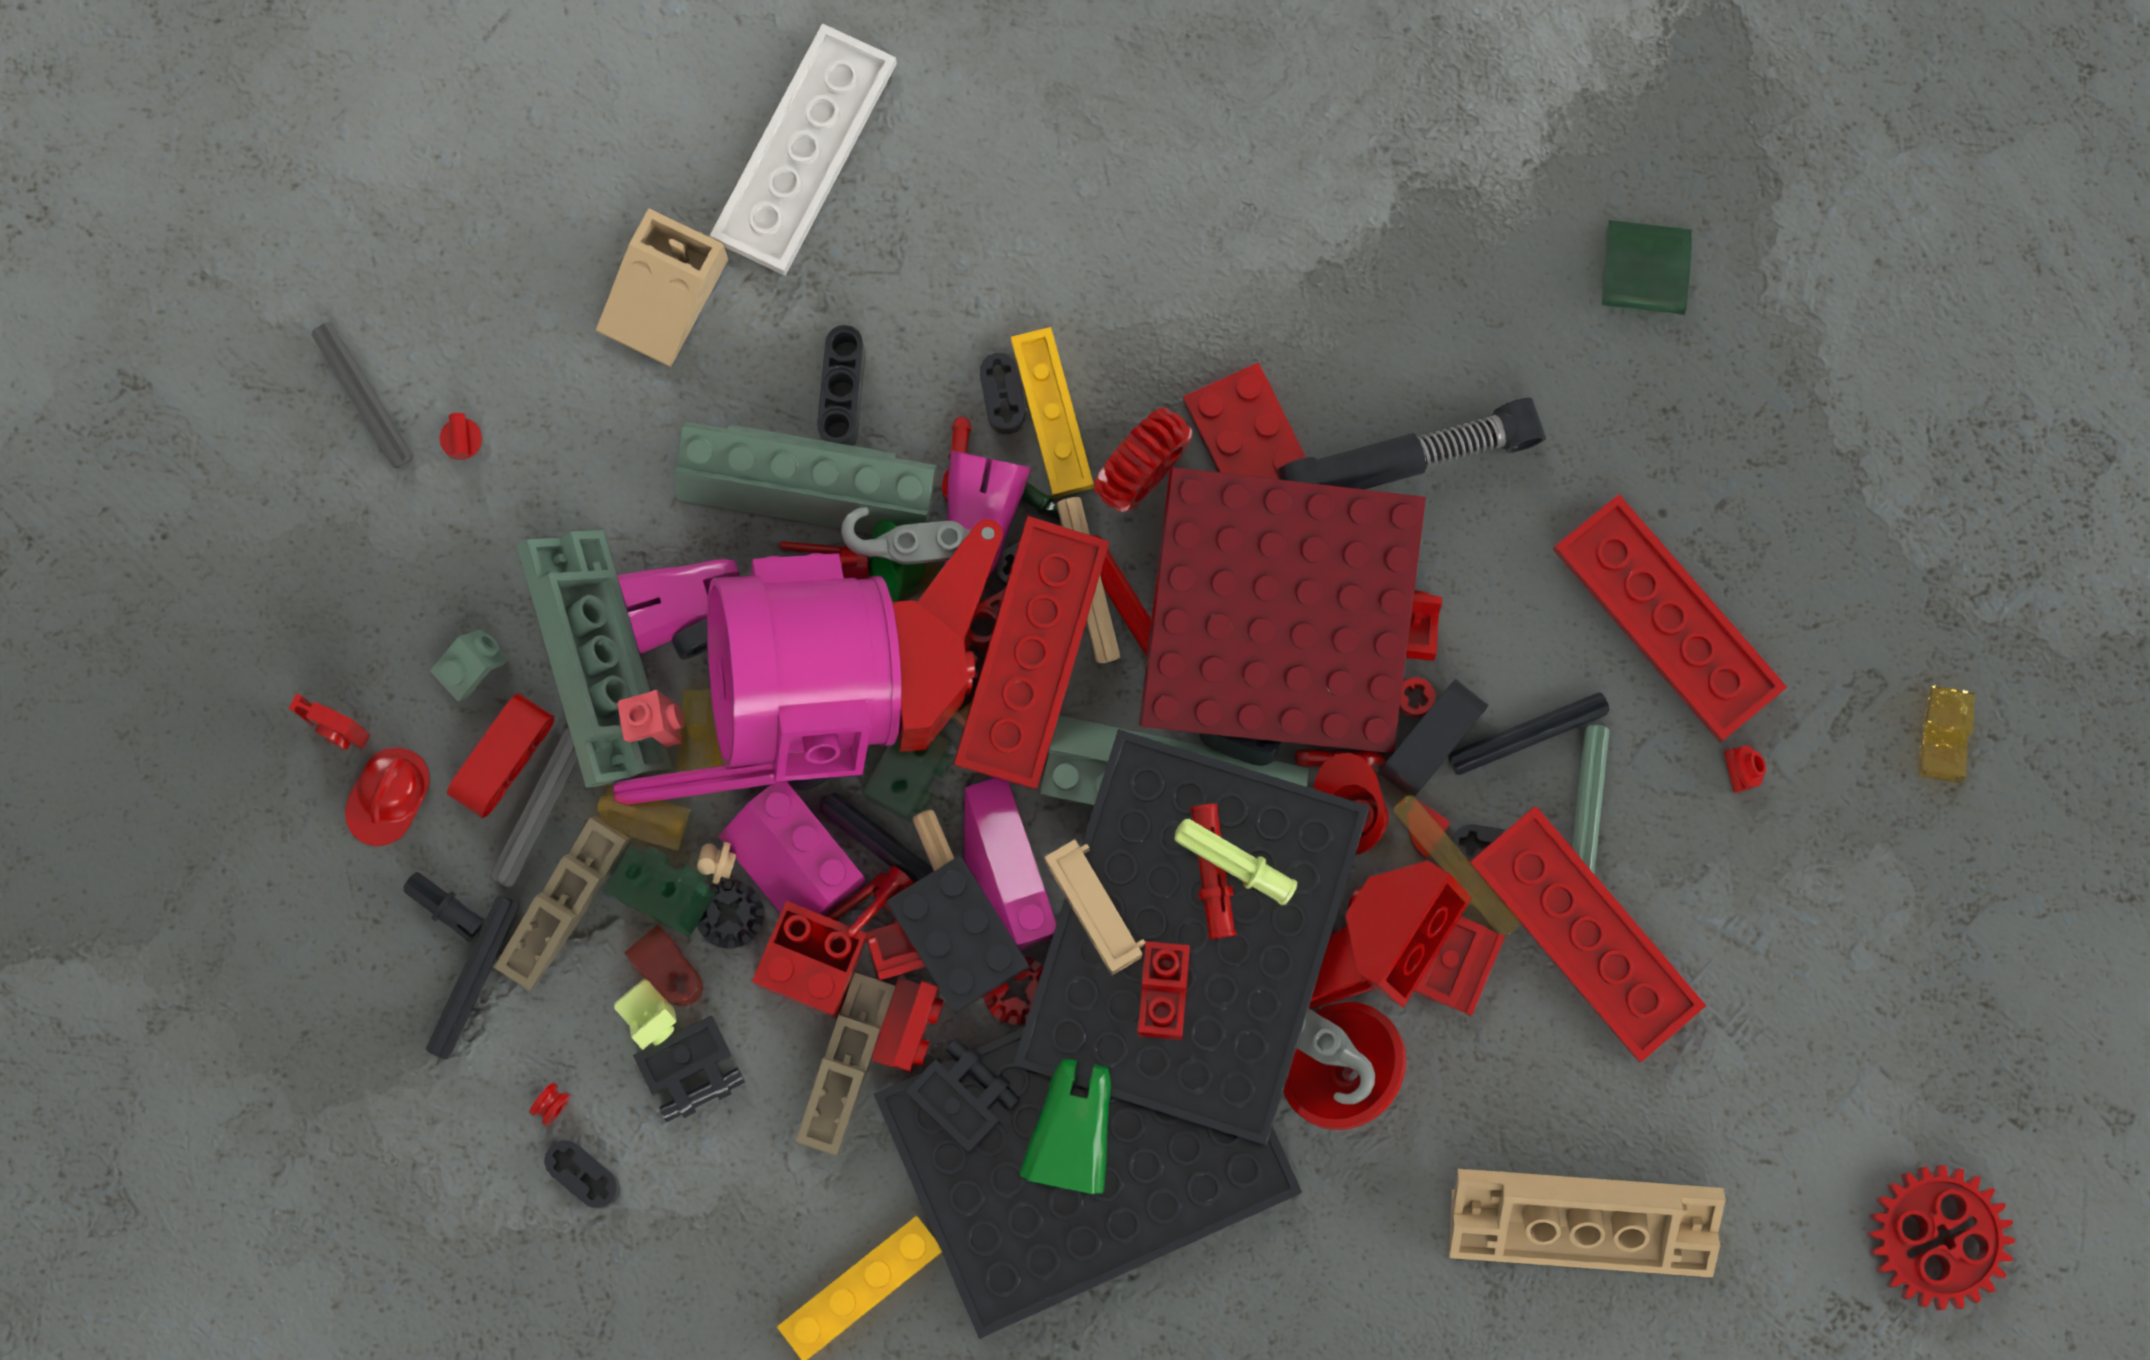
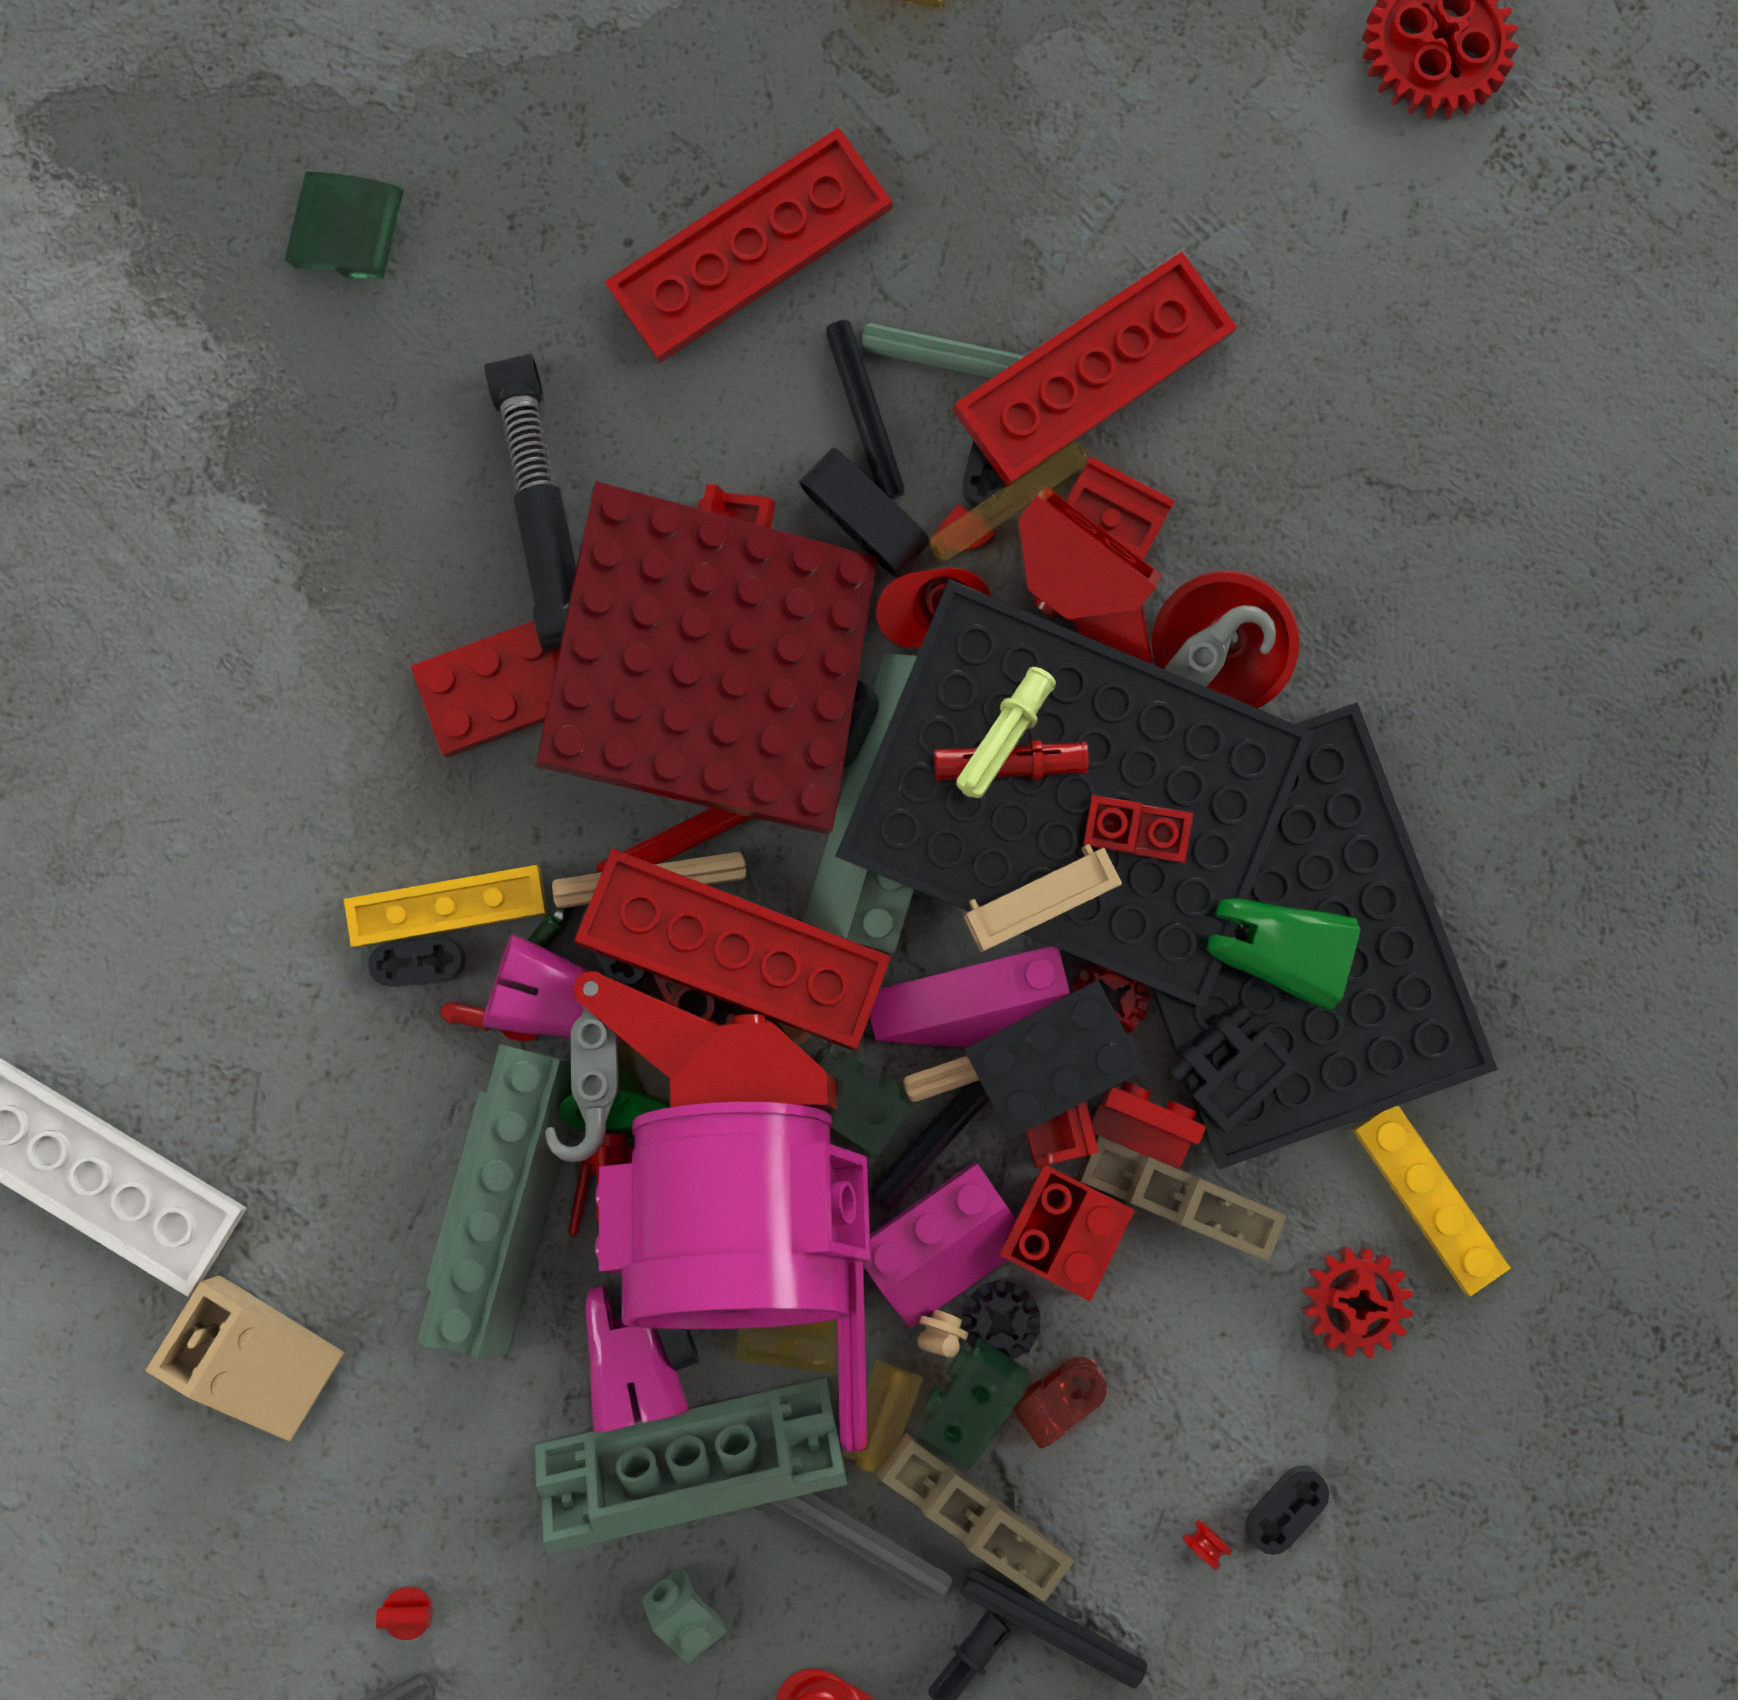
camera: 85 degrees left, 5 degrees up
(500, 755) = (796, 1583): red beam -> none
(646, 1014) = (1116, 1423): yellowish green bracket -> none
(651, 716) = (769, 1401): coral bracket -> none
(683, 1056) = (1161, 1383): black plate -> none
(744, 1220) = (1352, 1321): none -> red gear
(841, 369) = (369, 1150): black beam -> none
(886, 886) = (988, 1132): red plant -> none
(1142, 460) = (515, 804): red gear -> none
(1316, 758) = (874, 640): red piece -> none
(1428, 695) = (811, 515): red bush -> none
(1585, 1222) = (1404, 405): tan slope -> none
(1745, 768) = (922, 185): red plate -> none

